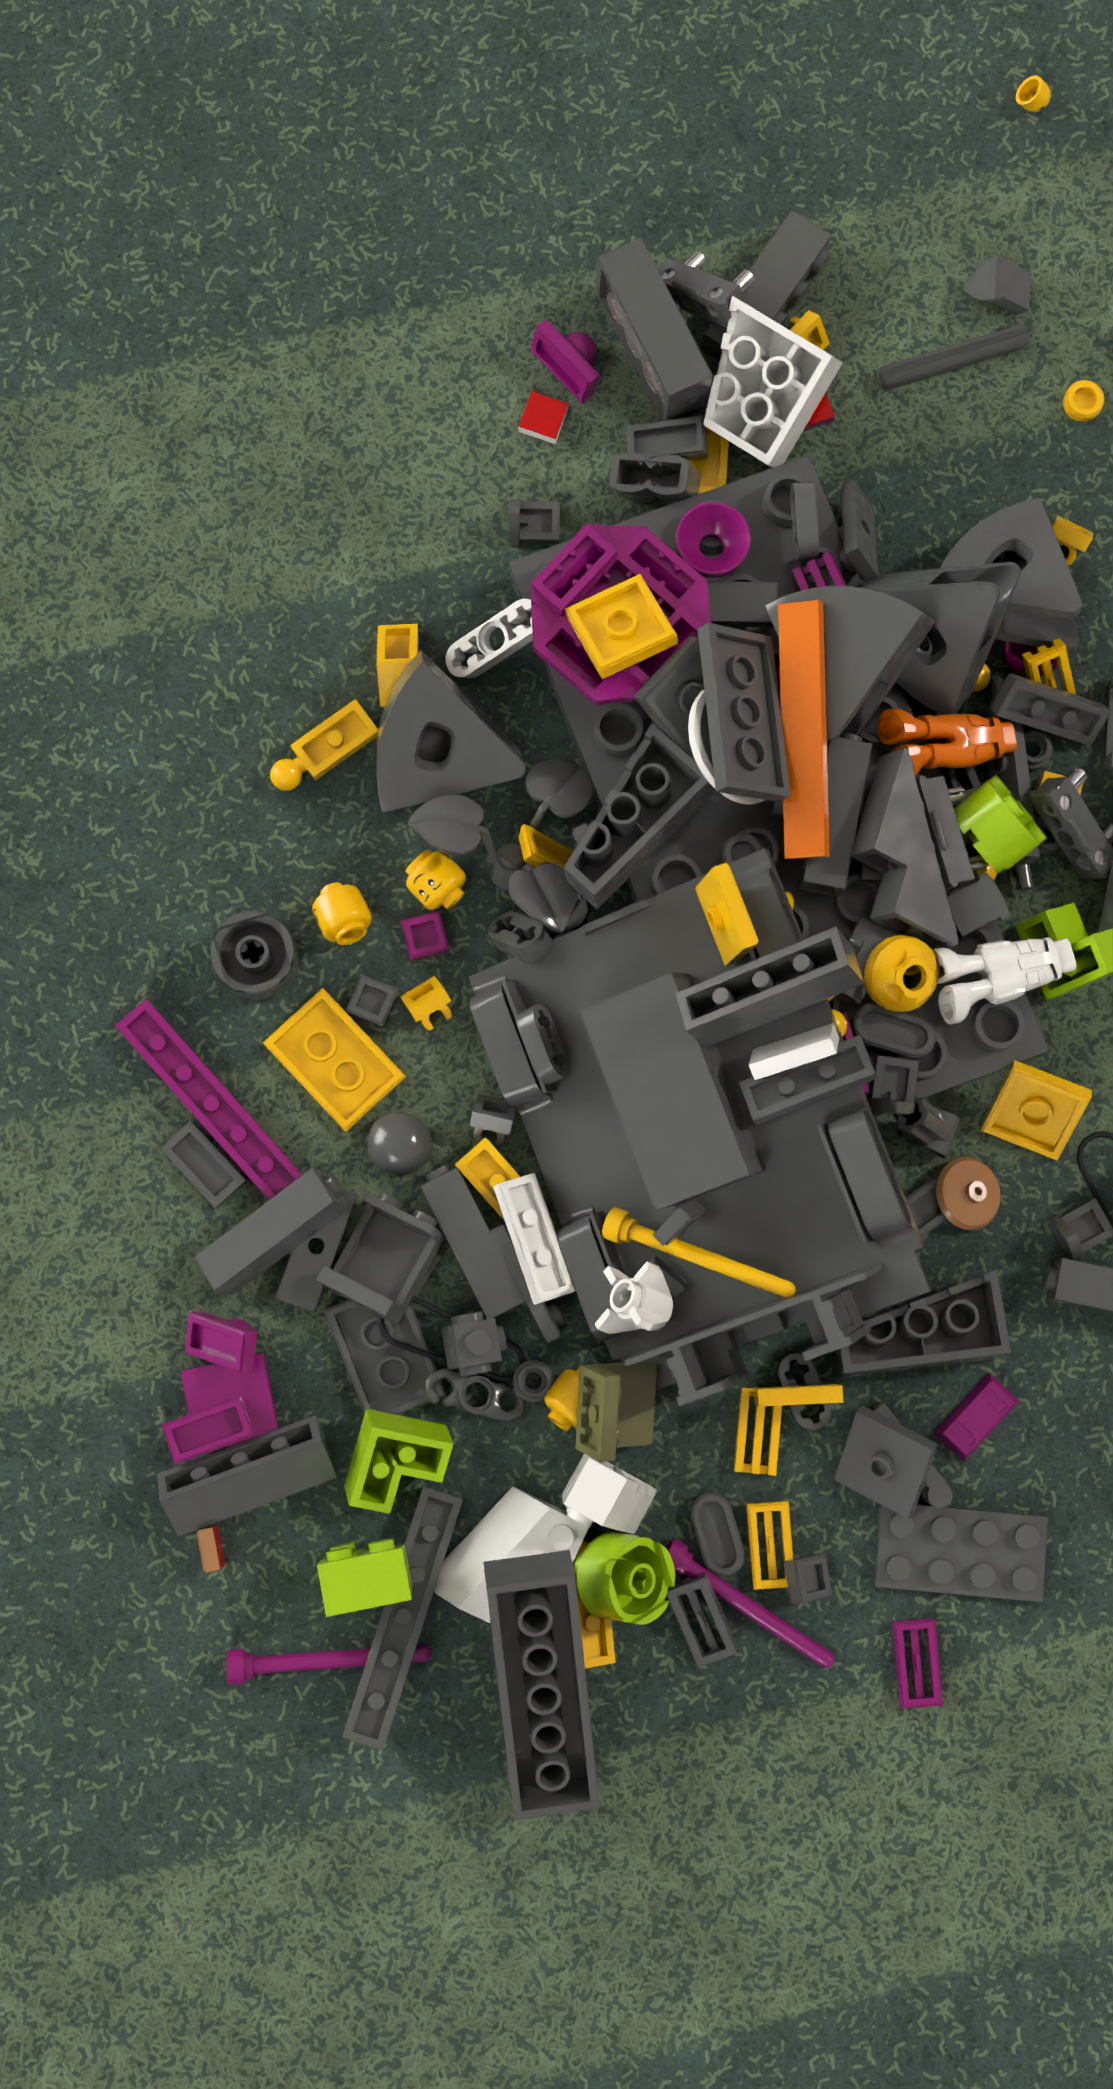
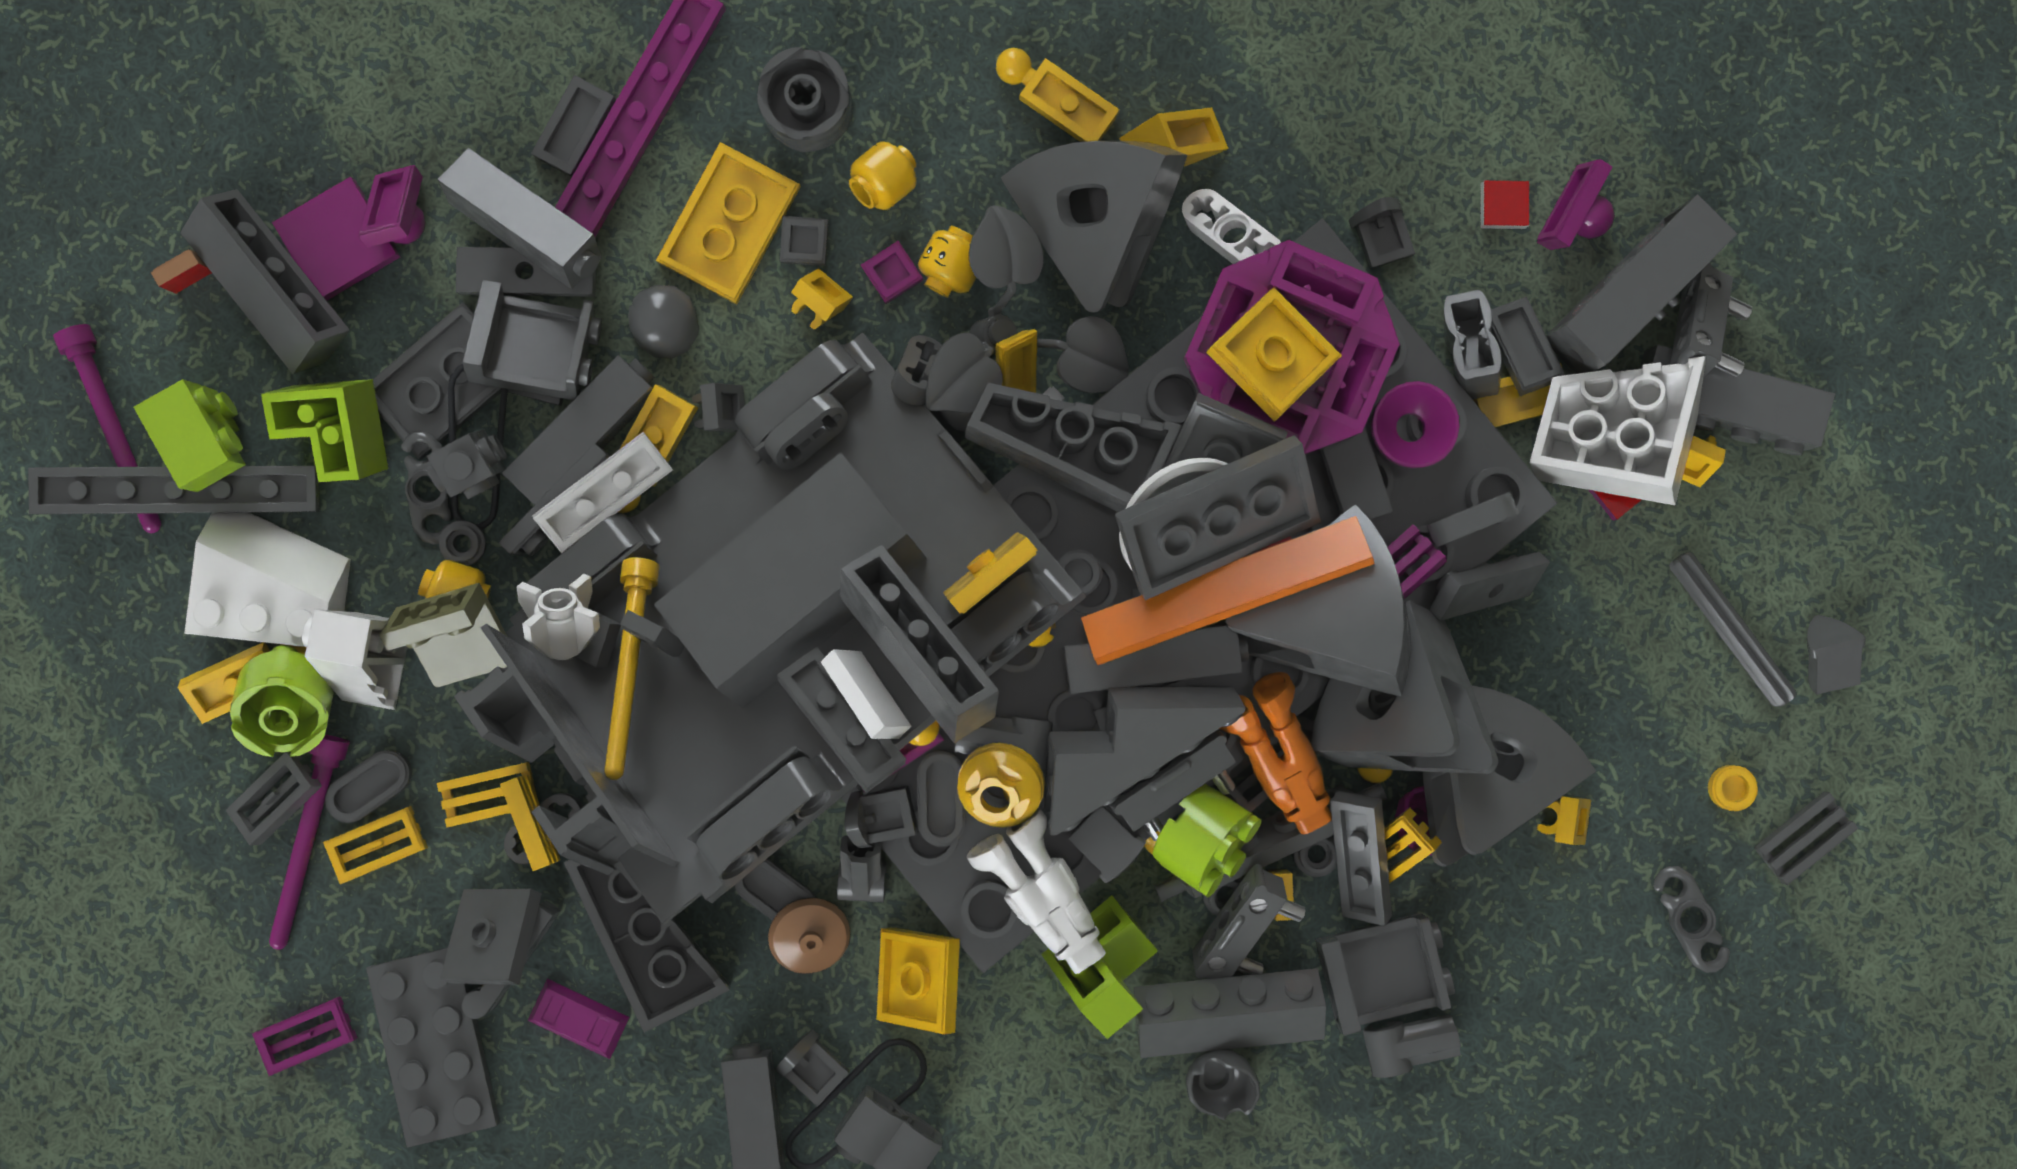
camera: 75 degrees right, 5 degrees up
(208, 1430) = (296, 224): magenta tile -> none
(542, 1684) = (140, 650): dark grey brick -> none
(808, 1578) = (351, 894): dark grey tile -> none

